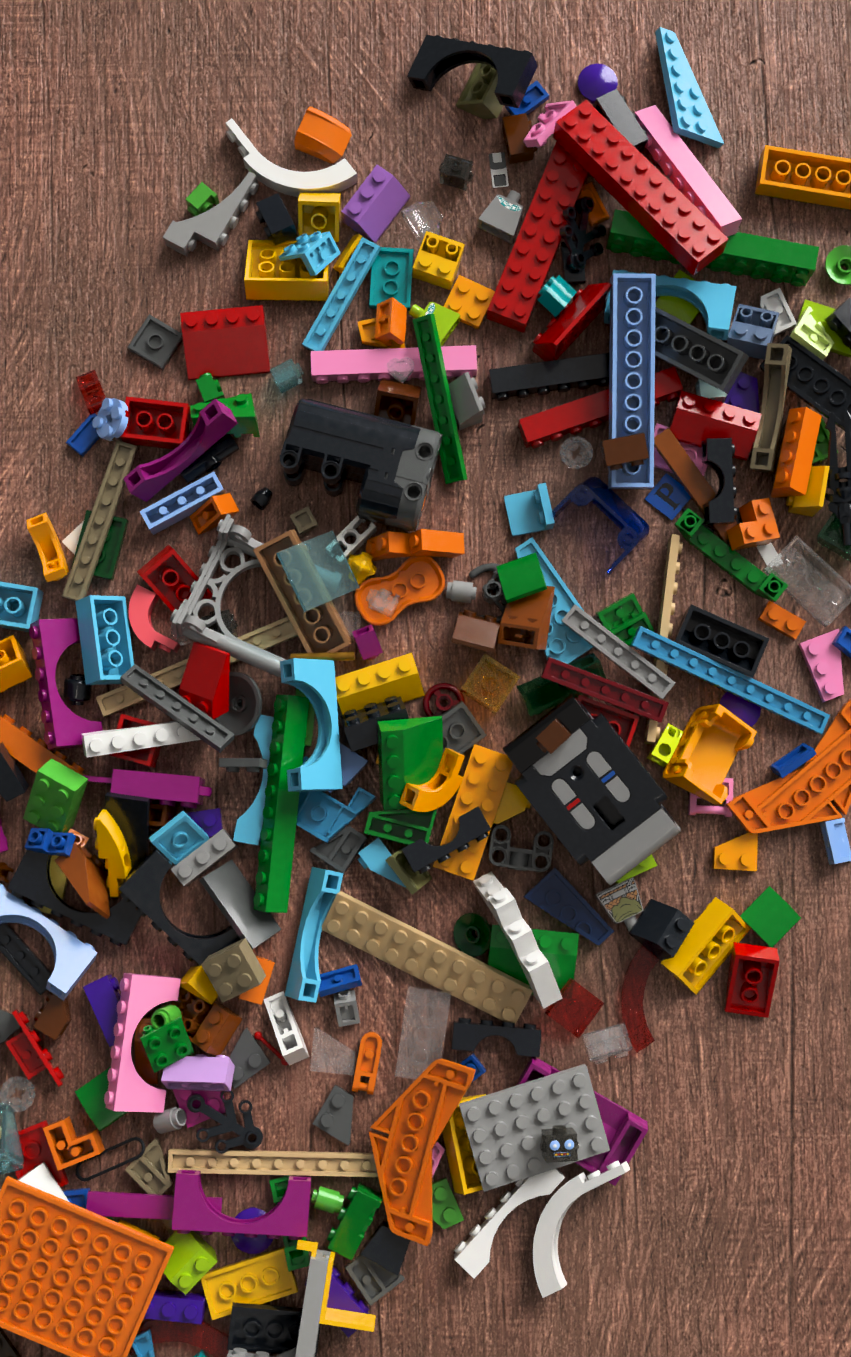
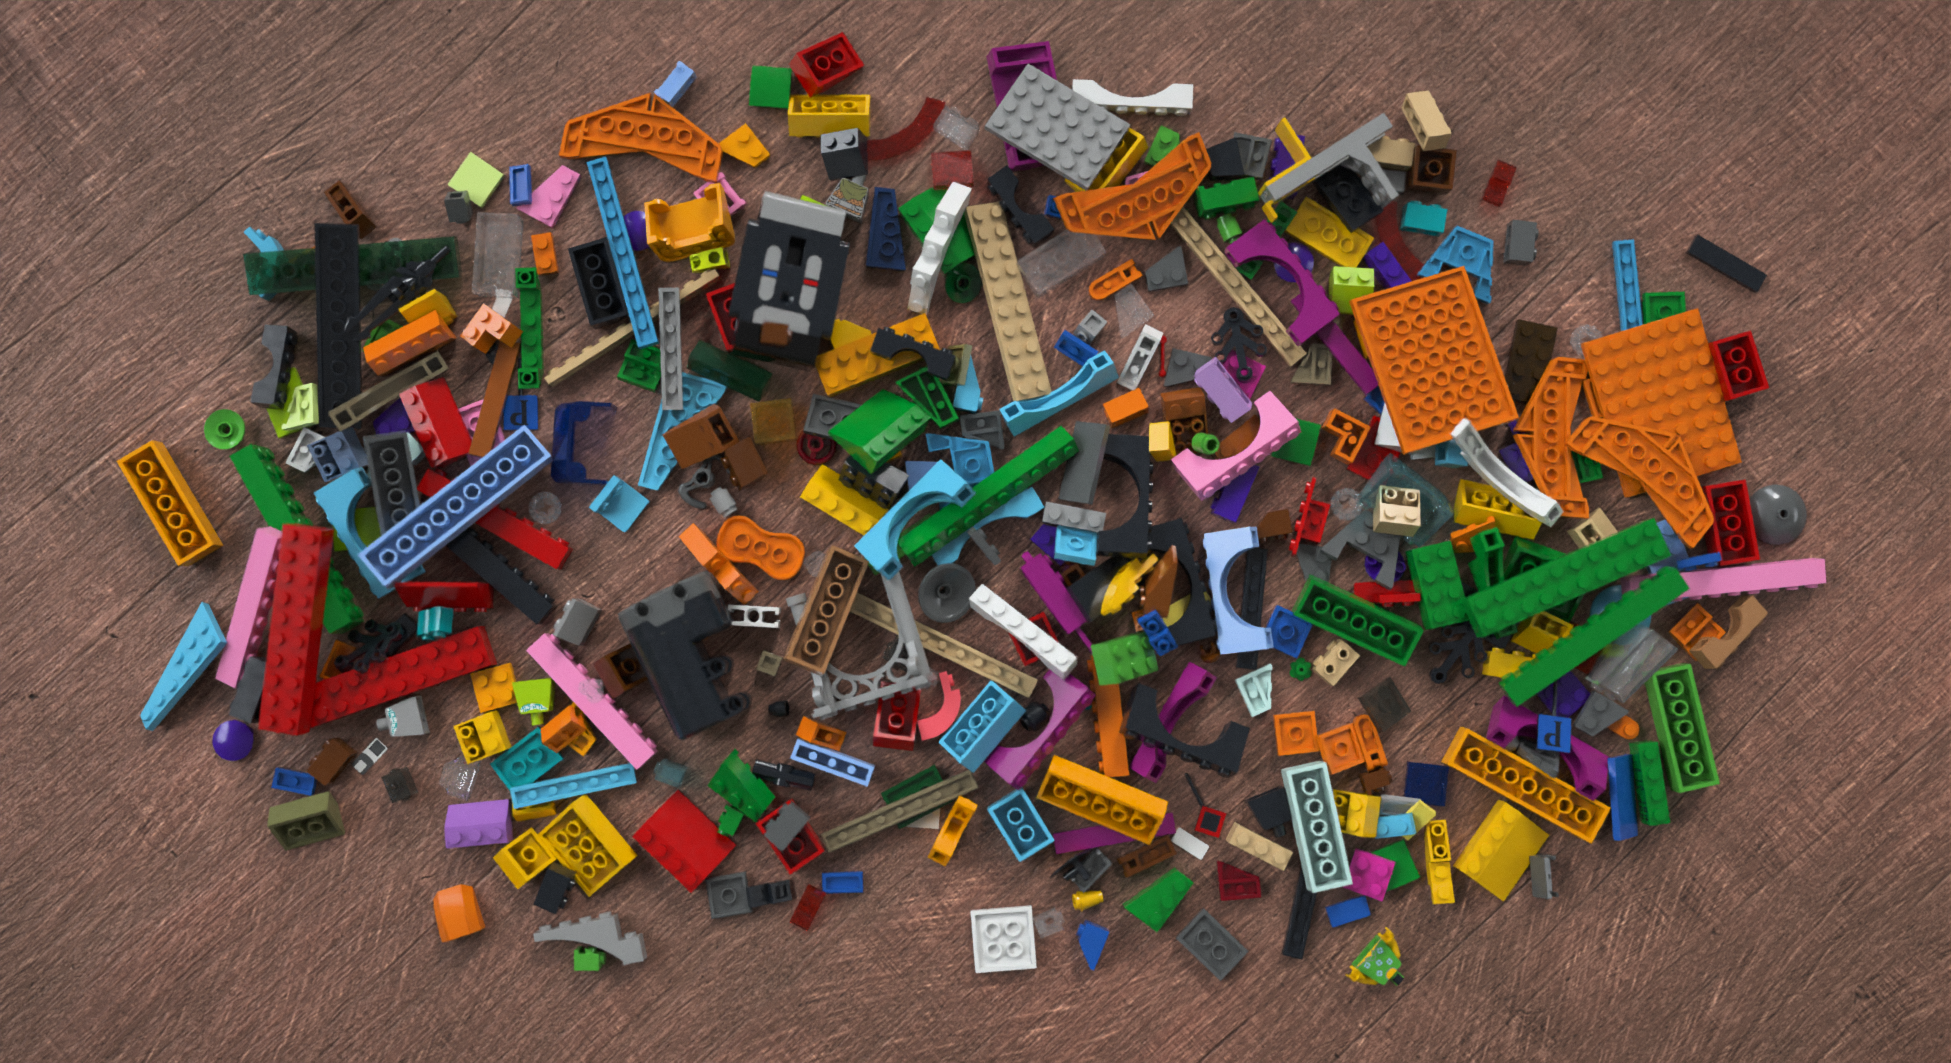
camera: 135 degrees left, 5 degrees up
(111, 419) = (824, 876): light blue plate -> none
(113, 1167) = (1332, 391): black piece -> none
(130, 372) = (768, 893): none -> black slope
(151, 477) = (760, 787): magenta arch -> none
(163, 423) = (786, 826): none -> dark grey brick
(166, 1044) = (1222, 426): green hinge -> none
(169, 1120) = (1271, 382): light grey brick -> none
(177, 708) = (985, 627): dark grey plate -> none
(207, 680) = (949, 625): red slope -> none
(233, 970) = (1132, 424): dark tan brick -> none
(289, 182) = (518, 909): white arch -> none
(314, 249) = (554, 836): medium azure bracket -> none
(318, 570) = (798, 613): clear light blue piece -> none
(336, 656) = (858, 557): pearl gold bar -> none
(362, 566) = (769, 589): yellow rock -> none
(367, 642) = (819, 536): magenta brick -> none
(382, 601) = (780, 550): clear brick -> none
(439, 398) = (589, 641): green plate -> none
(439, 788) = (880, 392): light orange arch -> none
(442, 54) = (313, 878): black arch -> none
(520, 858) = (880, 294): dark grey beam -> none
(521, 577) = (675, 464): green slope -> none
(545, 128) = (297, 747): bright pink wing -> none
(545, 1243) = (1128, 56): white arch -> none
(559, 1144) = (1053, 98): clear smoke head -> none
(604, 689) = (707, 334): dark red plate -> none
(623, 451) = (516, 466): reddish brown brick -> none
(718, 455) = (459, 396): black arch -> none
(793, 760) = (643, 161): blue tile -> none

